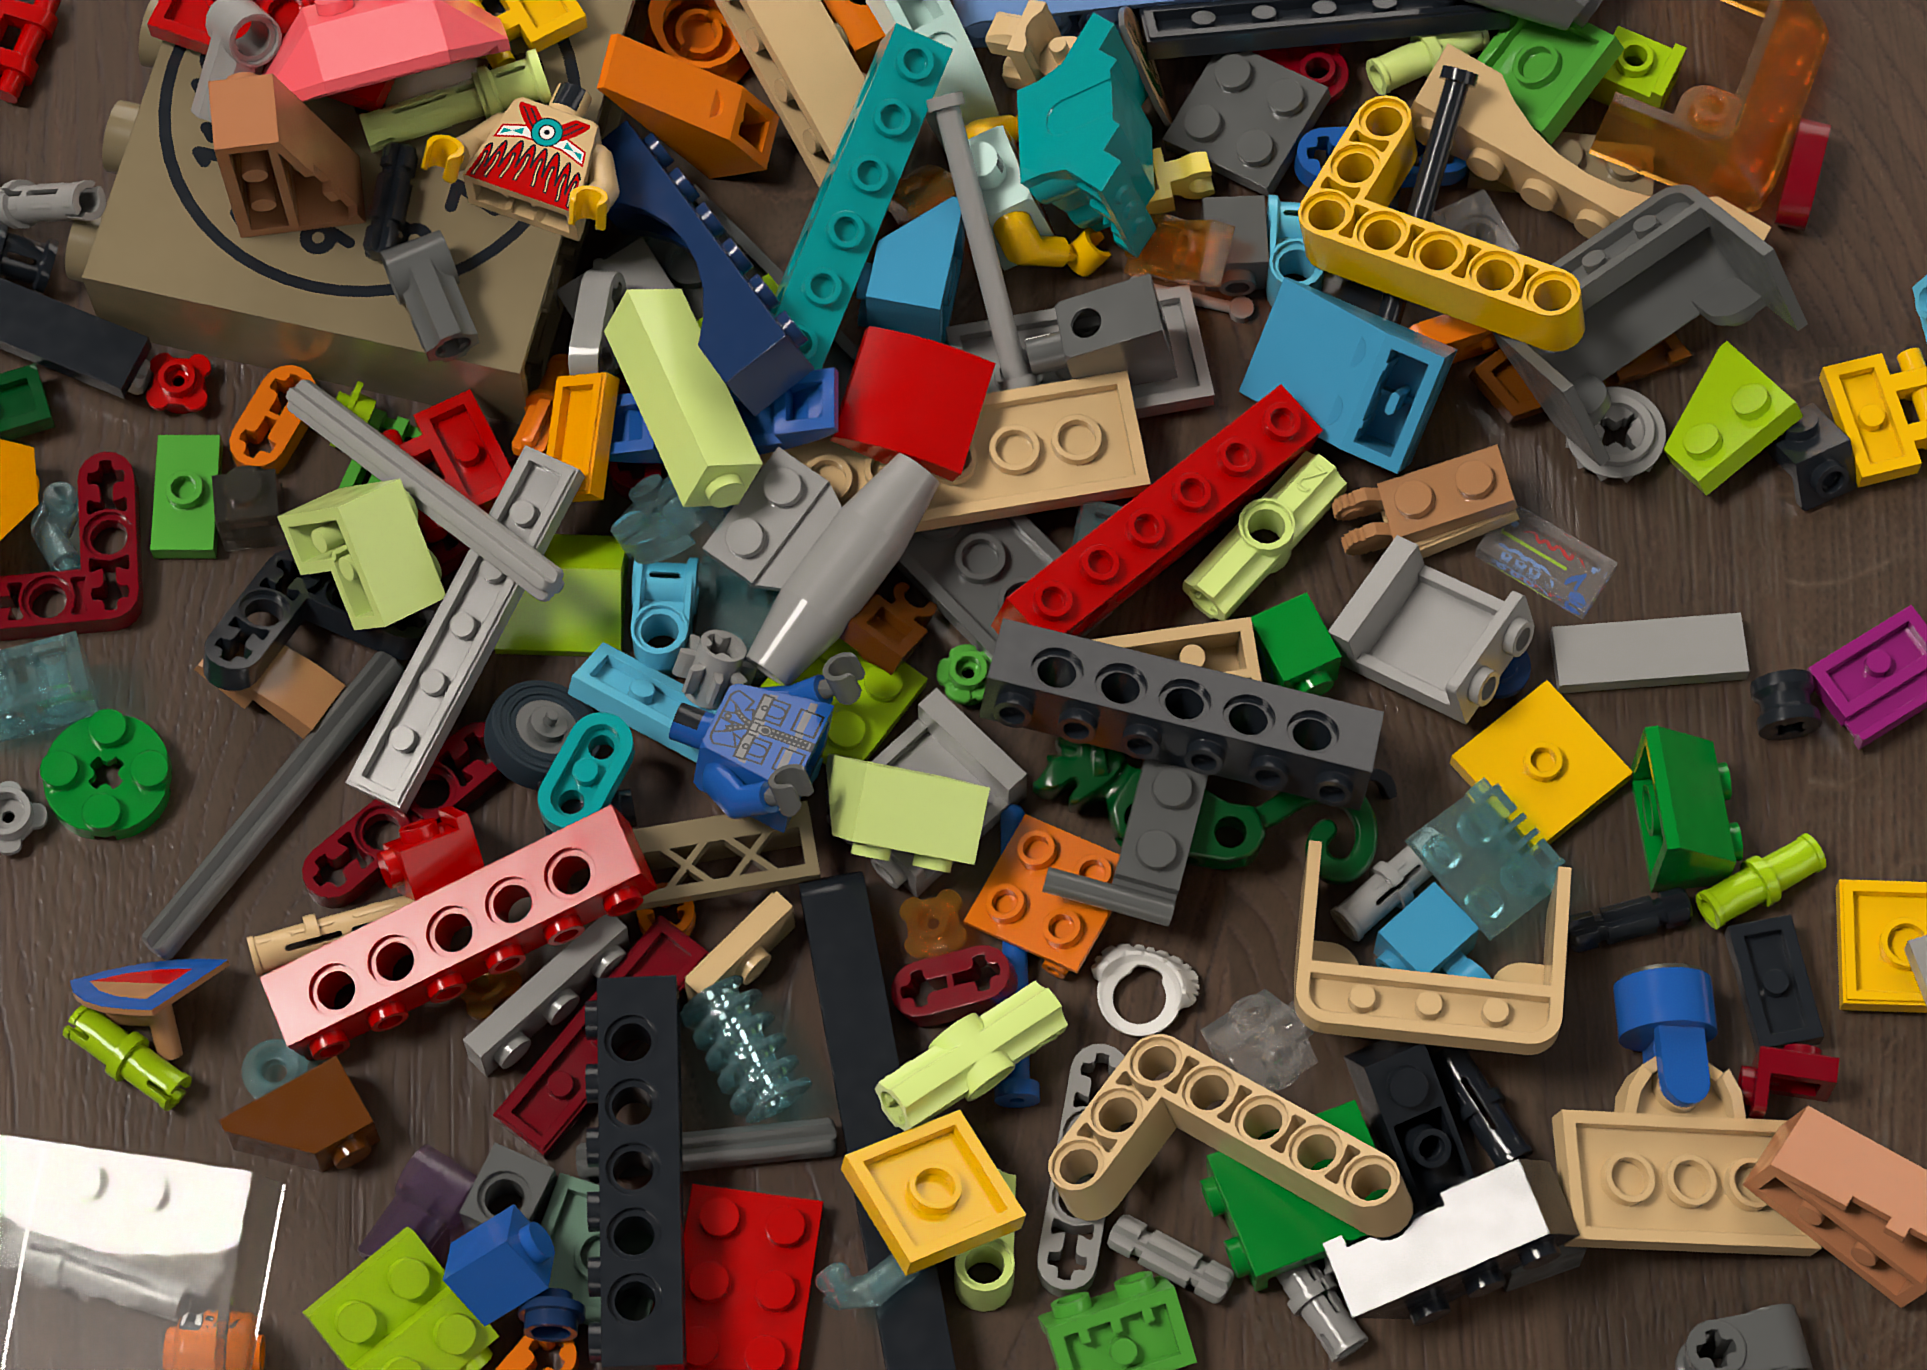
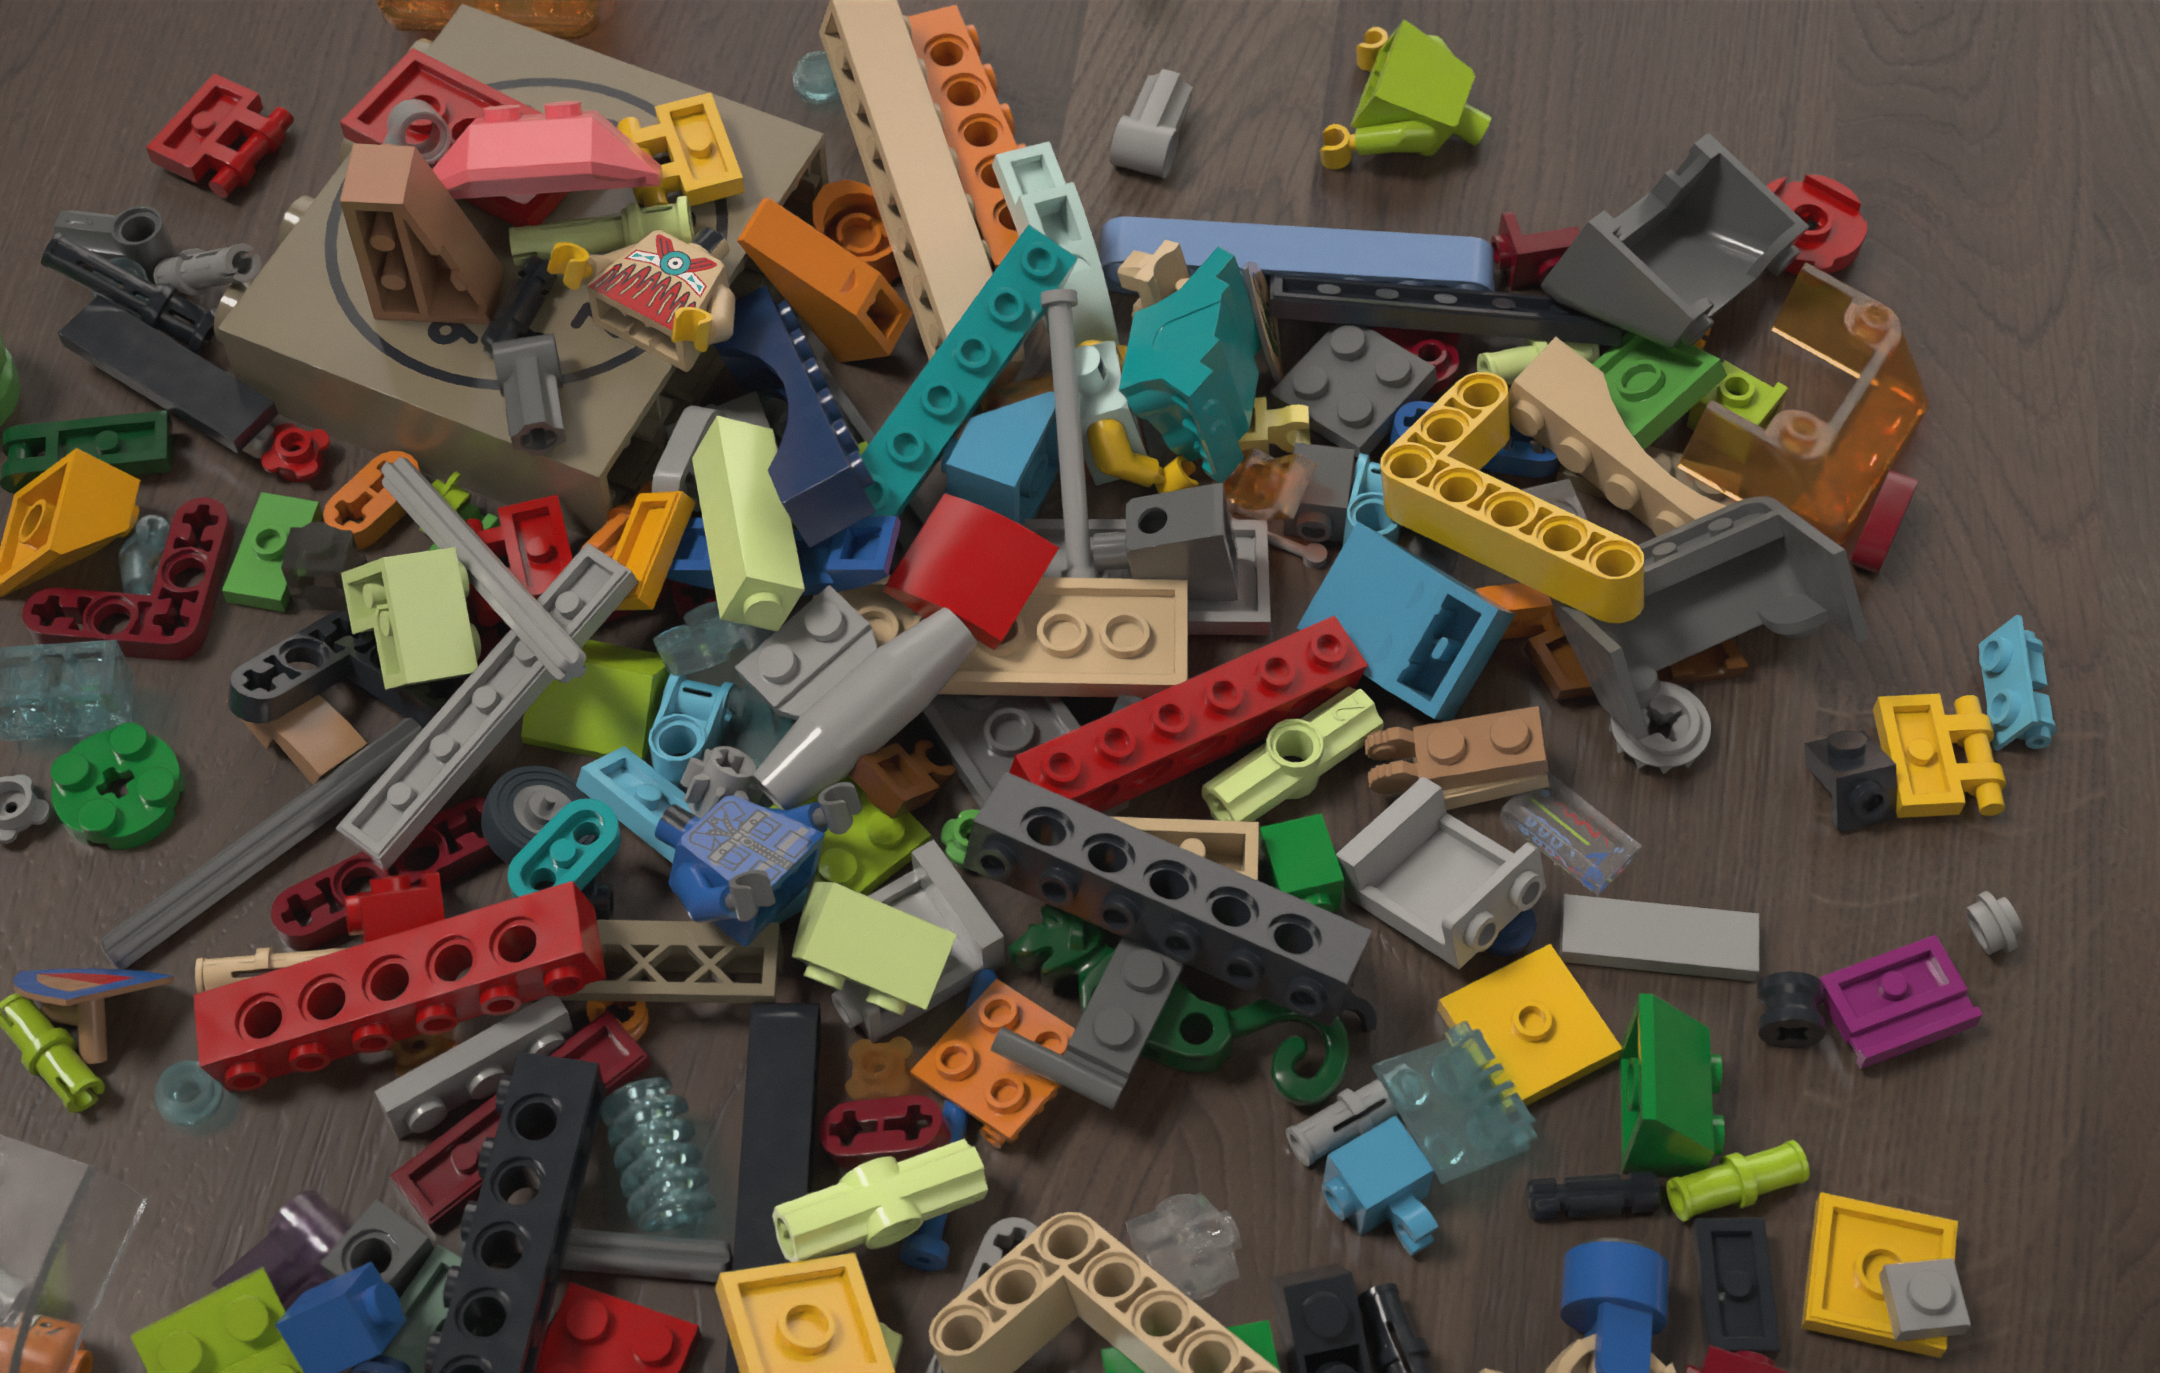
camera: 10 degrees right, 10 degrees down
(306, 1122) = (201, 1146): reddish brown slope -> none
(746, 947) = (687, 1054): tan plate -> none
(1177, 980) = (1115, 1169): white piece -> none
(1434, 162) = (1557, 368): black bar -> none
(1505, 1014) = (1430, 1256): tan windscreen -> none
(1728, 420) = (1775, 731): lime wing -> none

